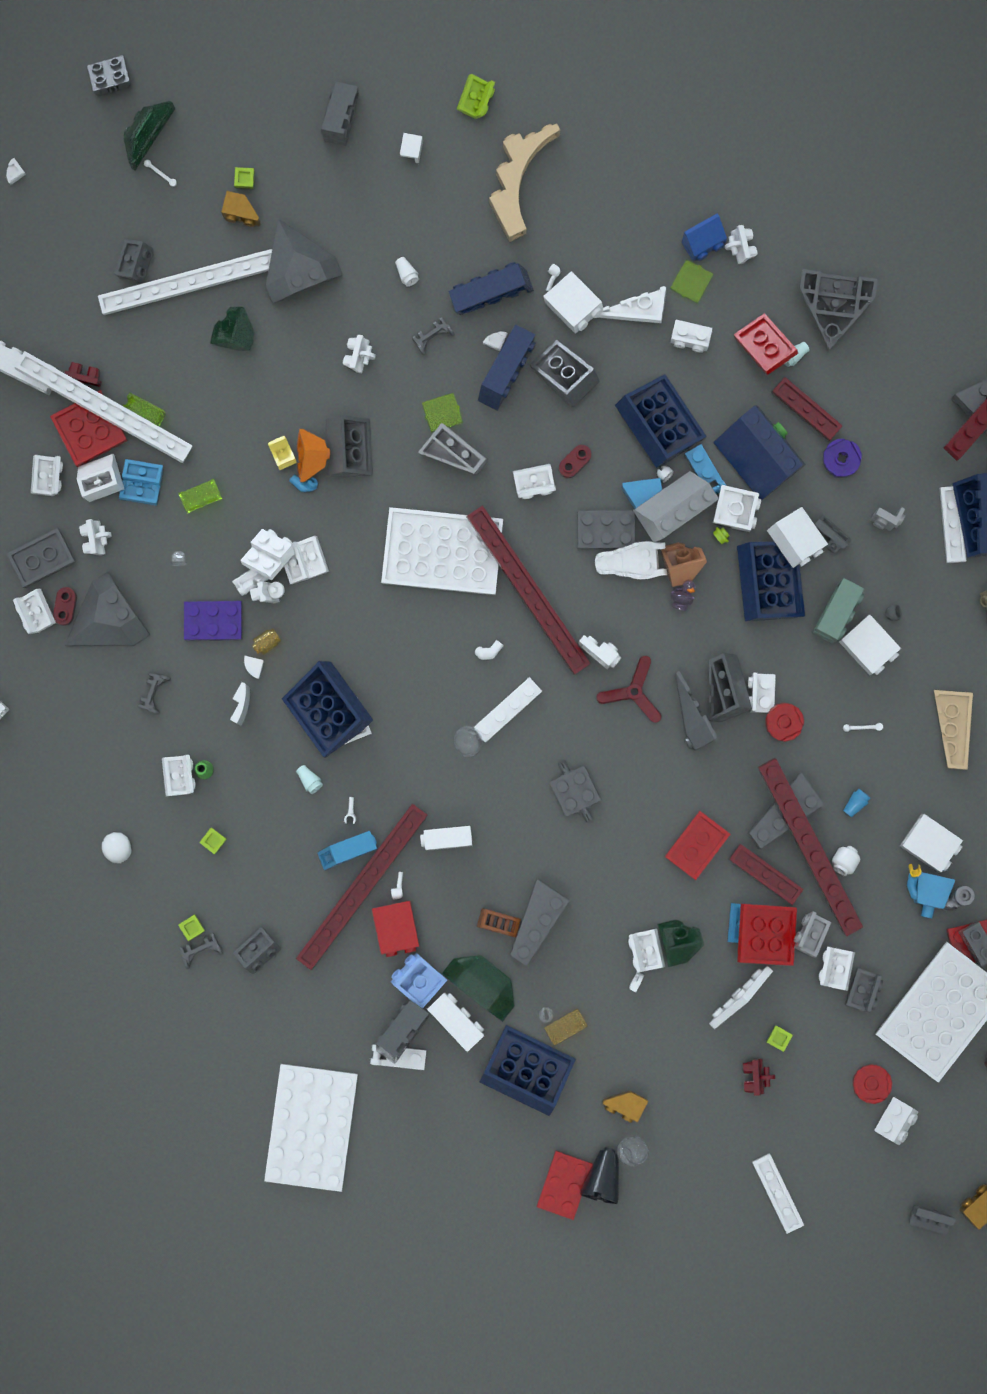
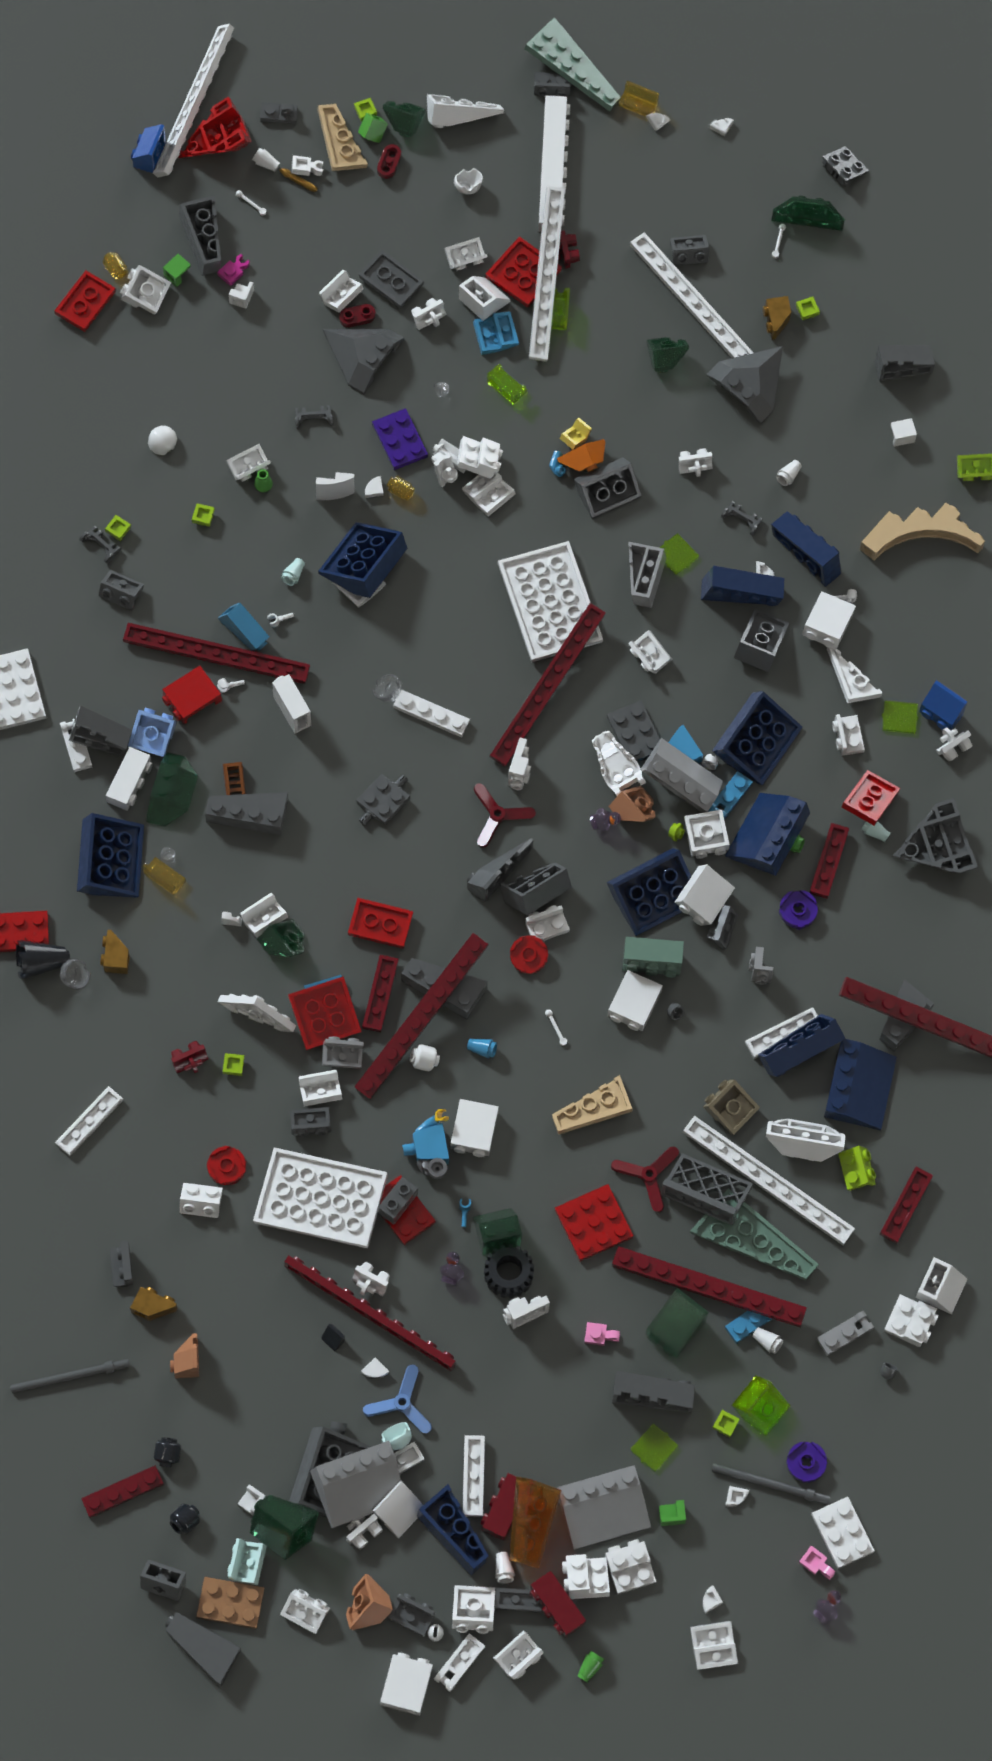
camera: 60 degrees right, 15 degrees down
(488, 653) = (476, 677): white arm -> none
(575, 461) = (684, 683): dark red plate -> none

